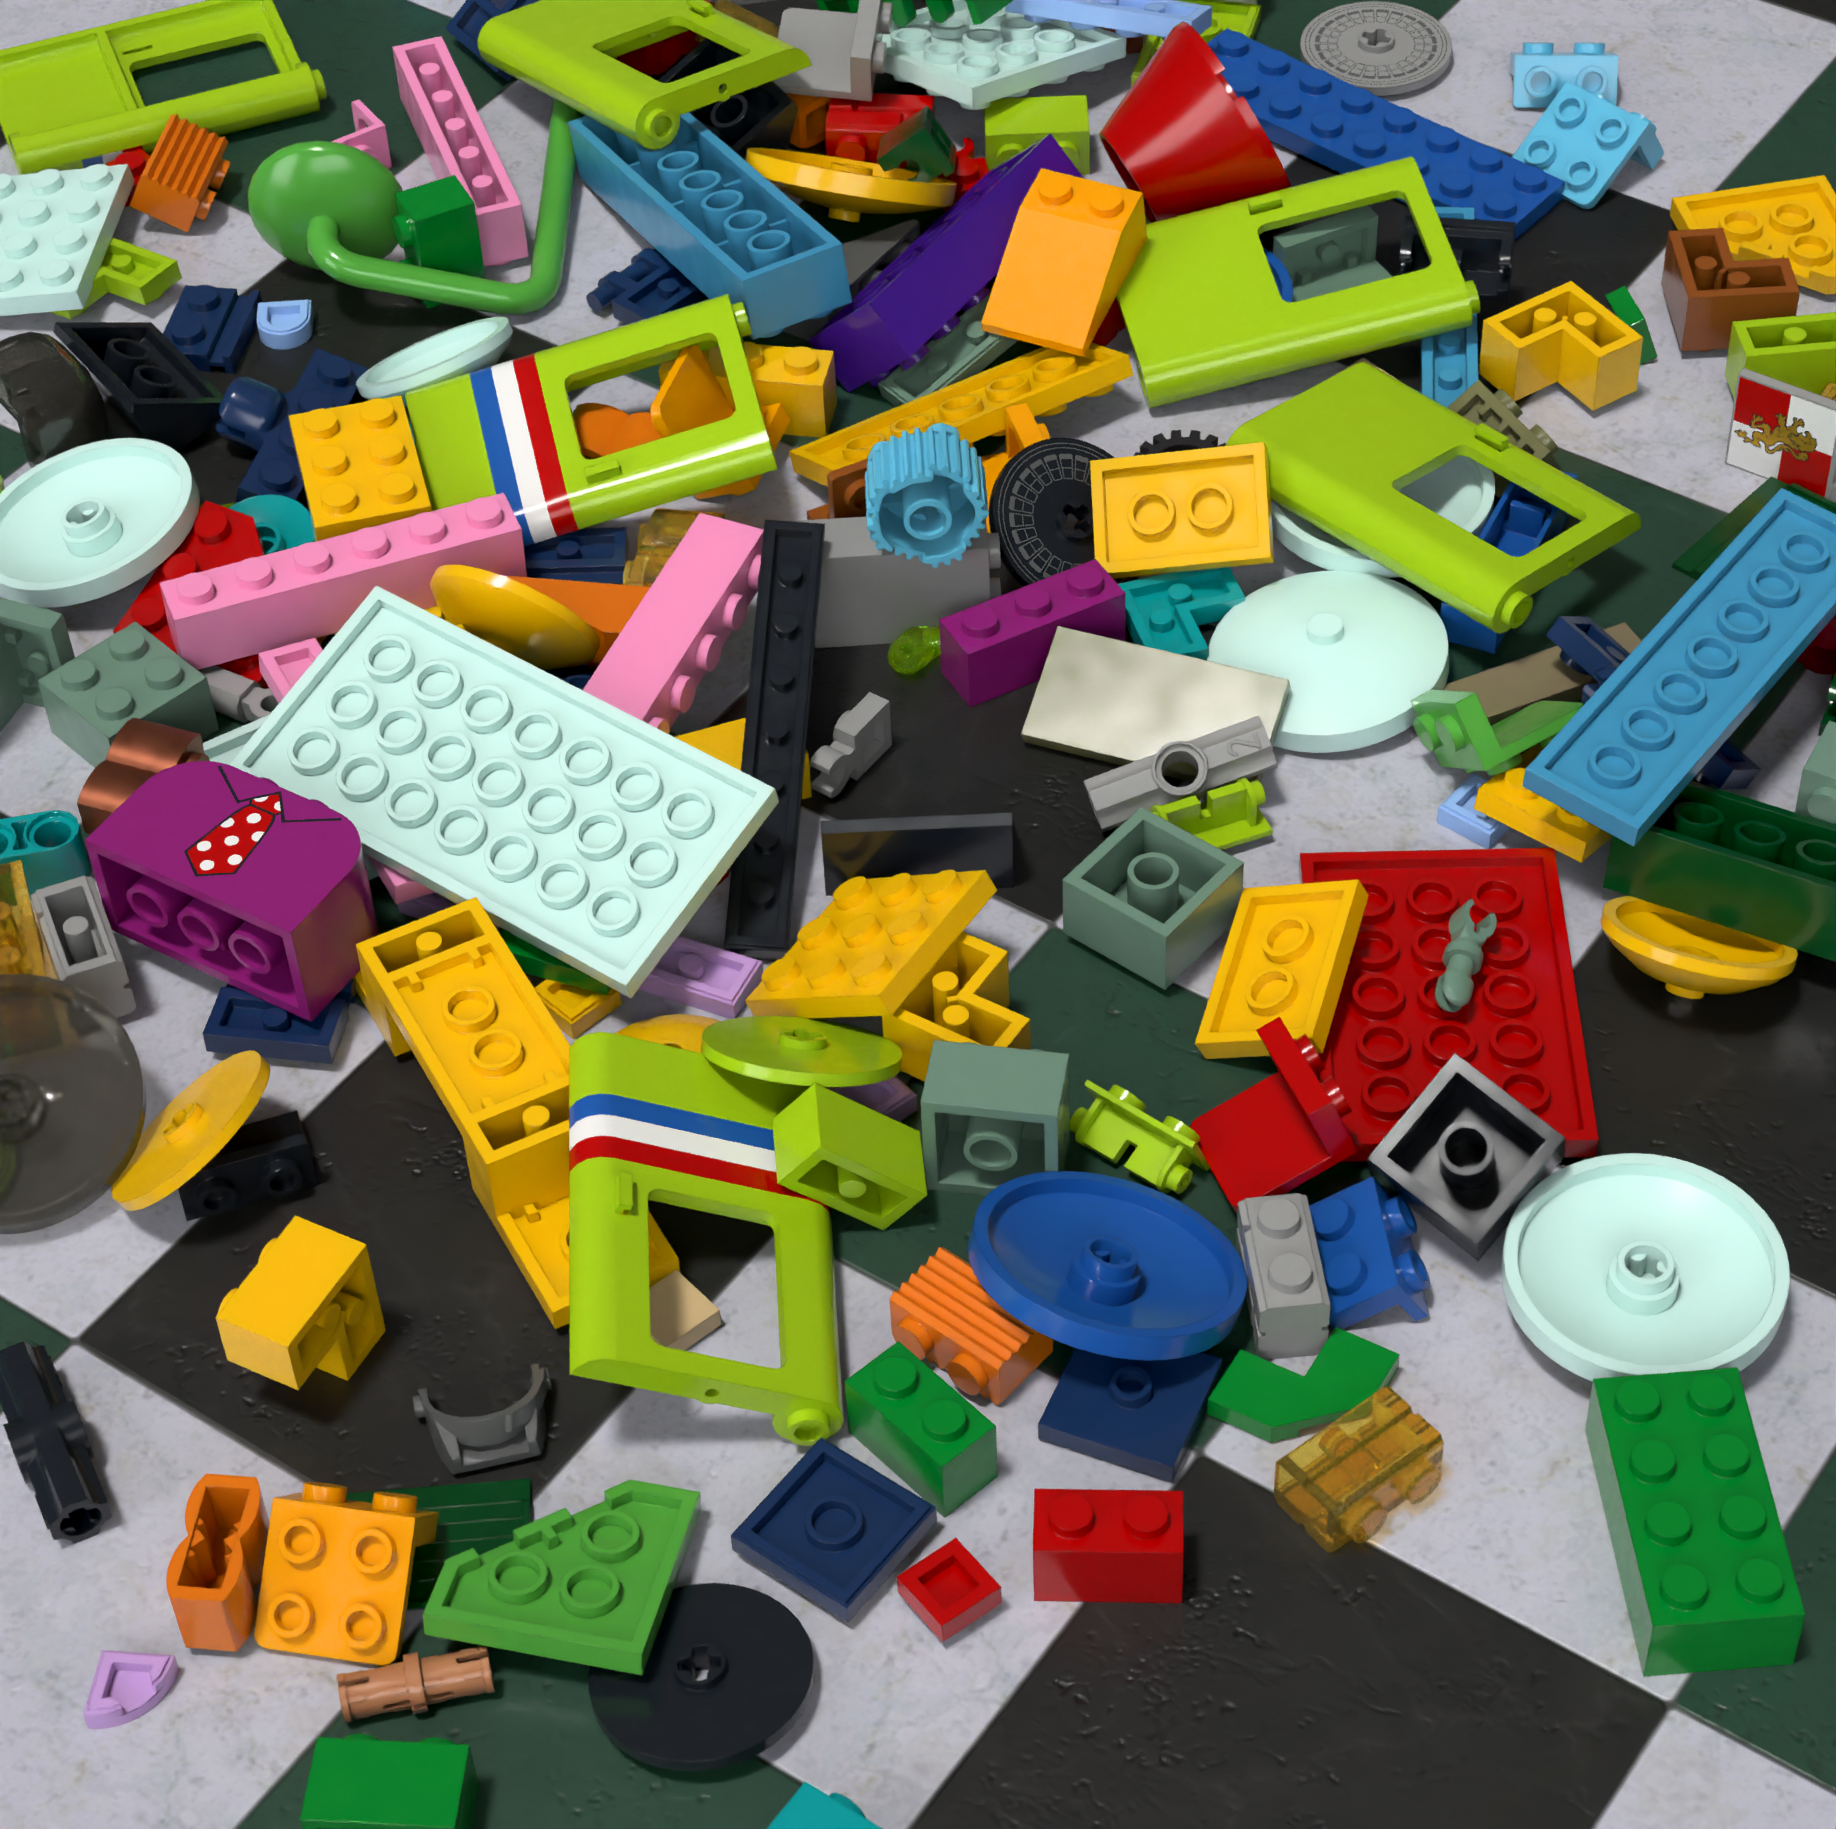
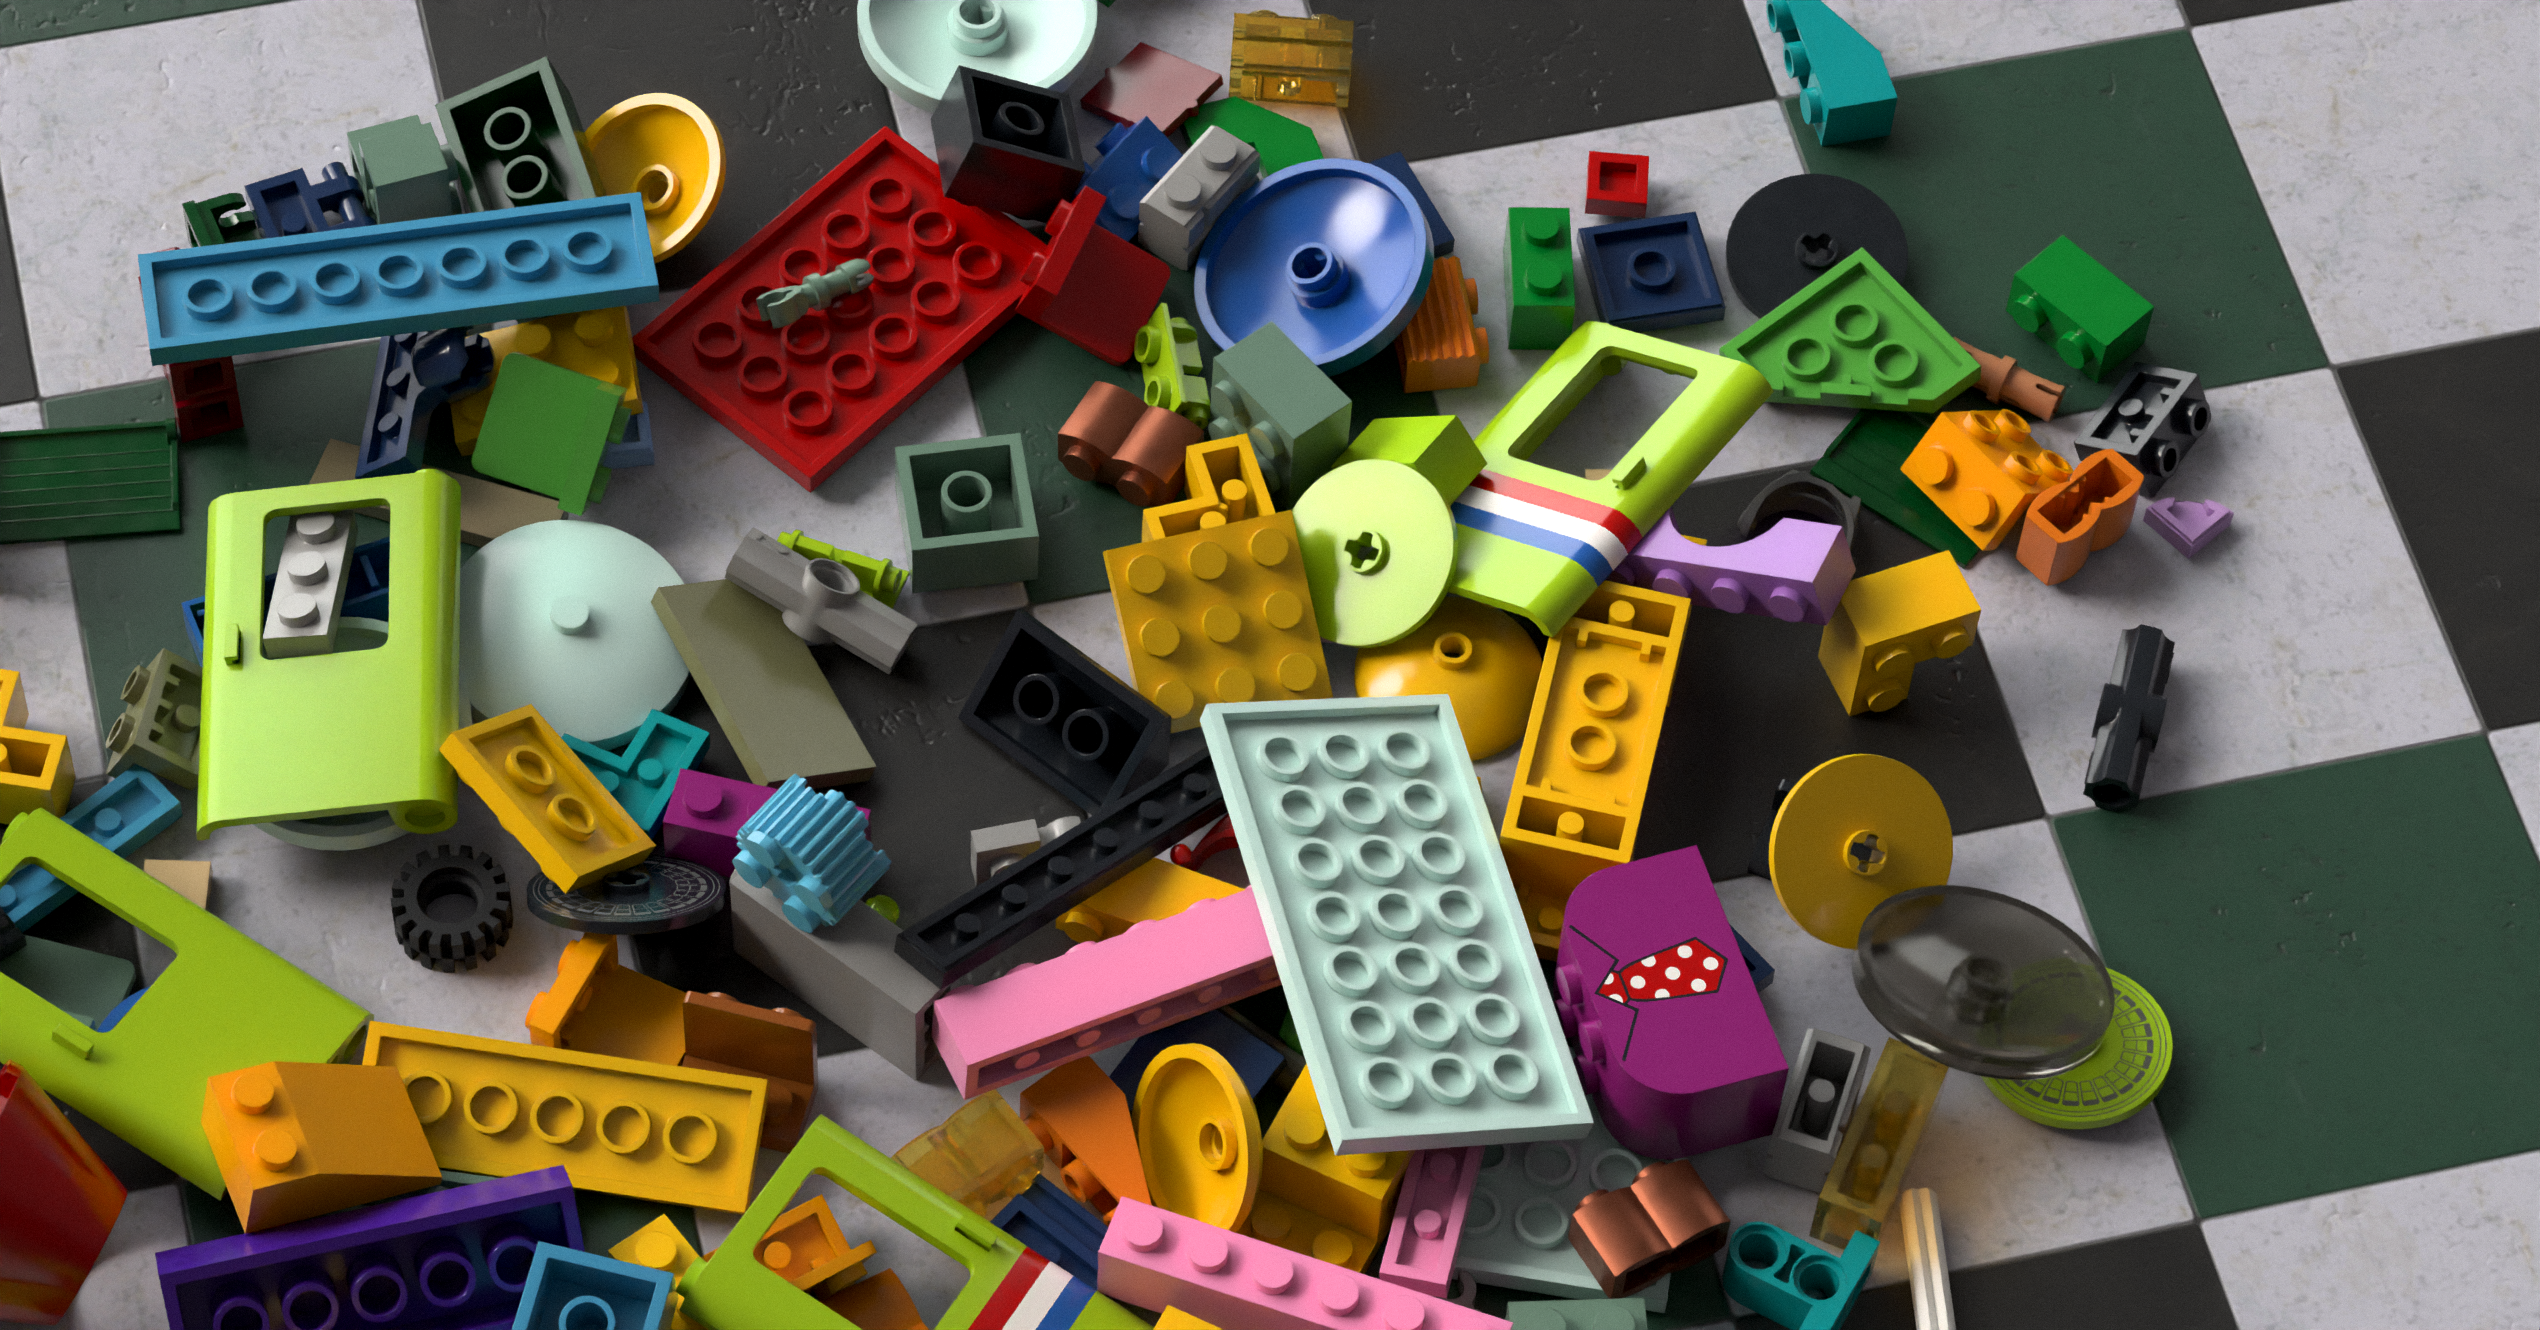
camera: 145 degrees left, 10 degrees up
(233, 1731) = (2149, 422): none -> black bracket
(407, 1201) = (1785, 574): none -> medium lavender arch
(1108, 1545) = (1498, 125): red brick -> none
(1110, 1046) = (1127, 445): none -> copper brick
(1282, 961) = (946, 381): yellow plate -> none
(1442, 1356) = (1152, 86): none -> piece
(1491, 500) = (310, 584): none -> light grey plate

